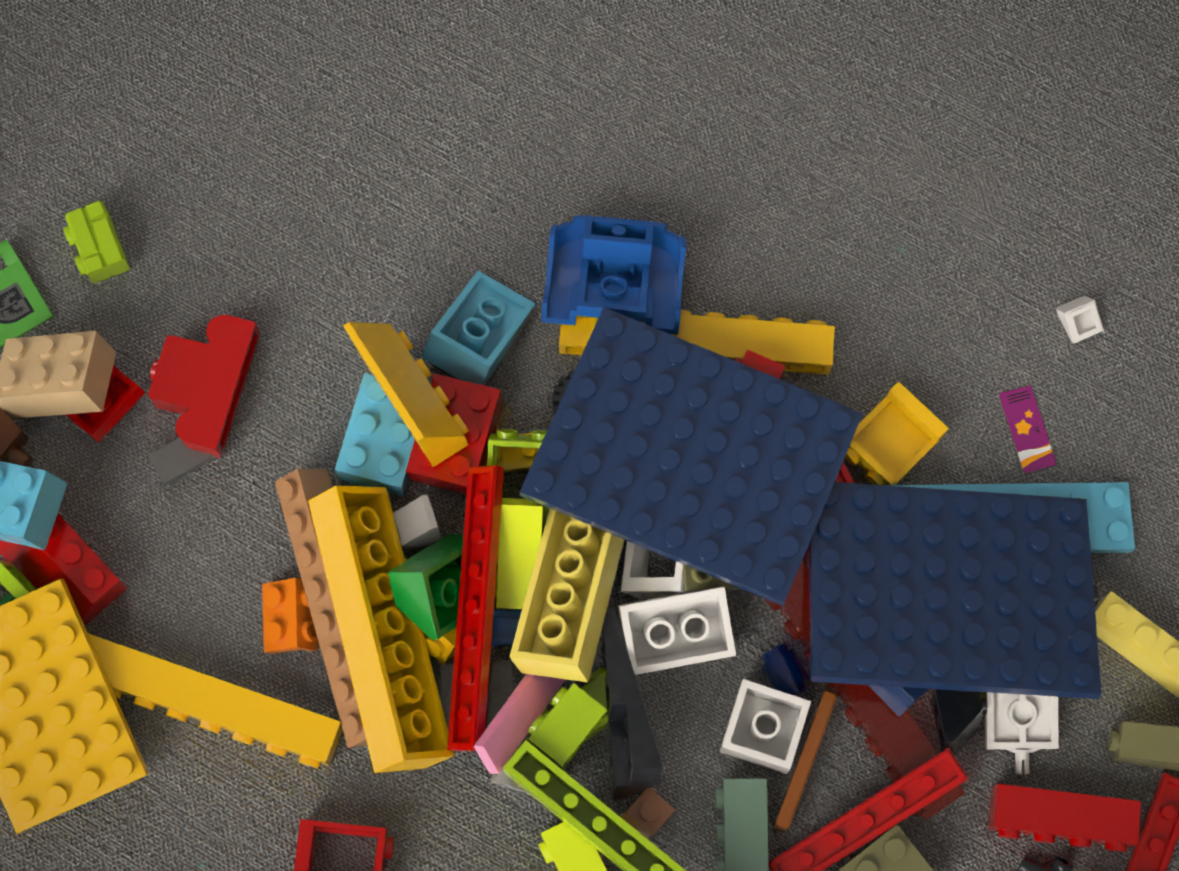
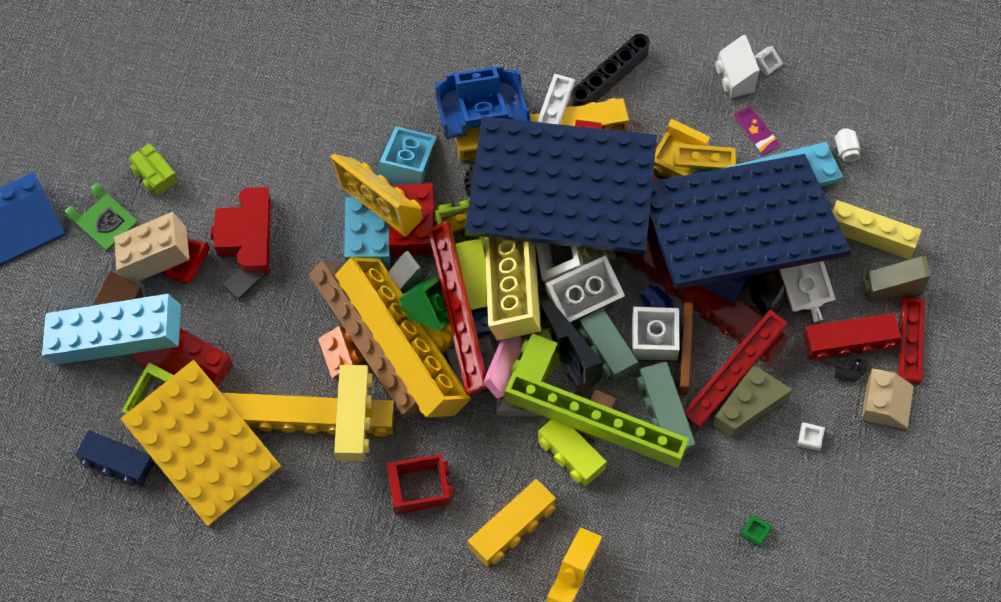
camera: 15 degrees left, 10 degrees down
(271, 727) = (352, 413): none -> light yellow brick
(687, 721) = (607, 345): none -> sand green brick
(727, 307) = (556, 99): none -> white tile
(839, 261) = (612, 64): none -> black beam
(929, 457) = (702, 156): none -> yellow plate
(1028, 324) = (738, 68): none -> white slope
(1159, 498) = (848, 145): none -> white brick

